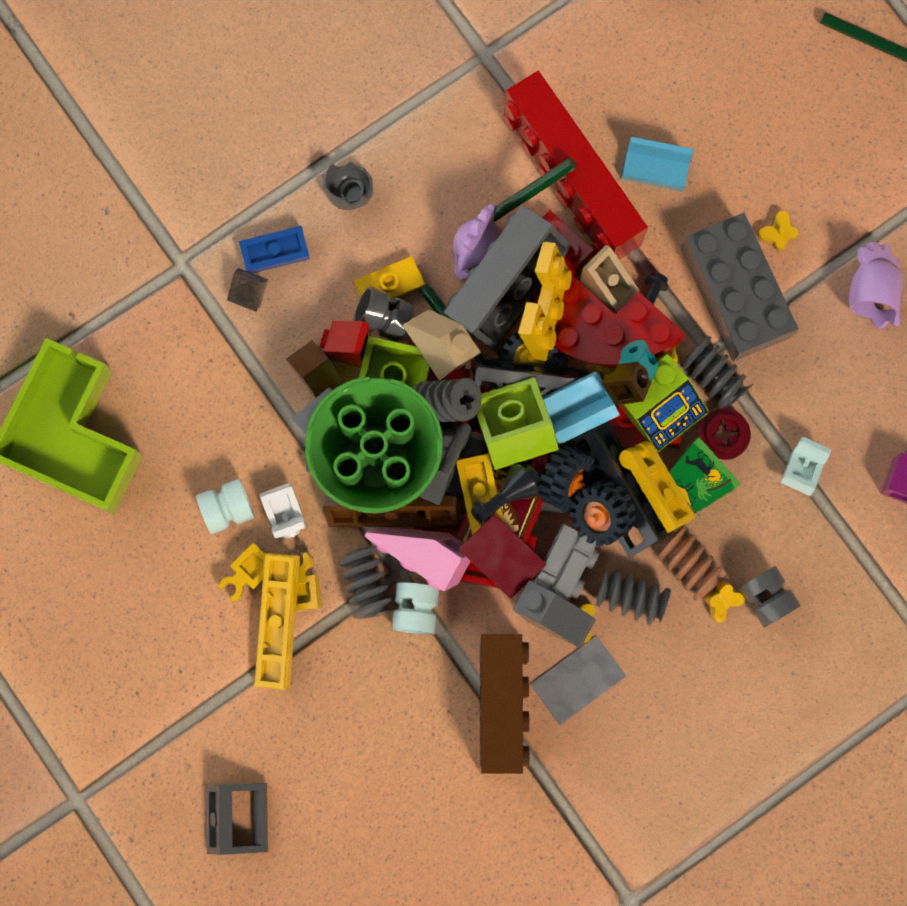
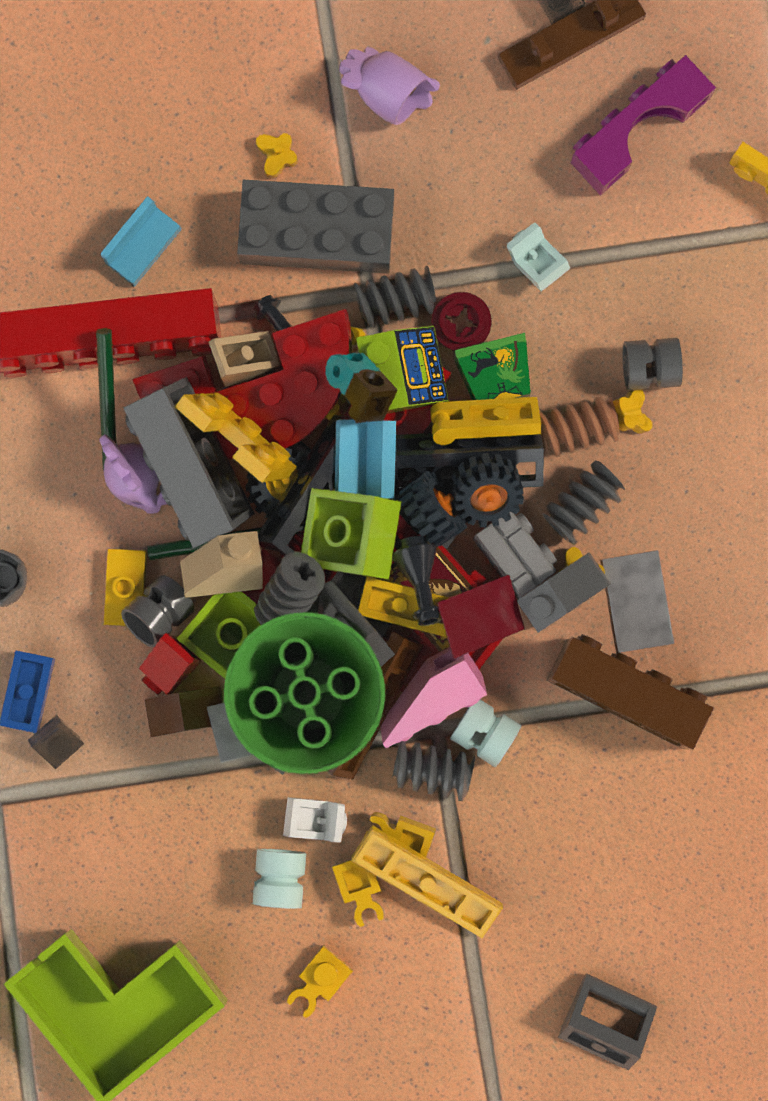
camera: 60 degrees left, 5 degrees up
(166, 578) = (323, 977): none -> yellow plate

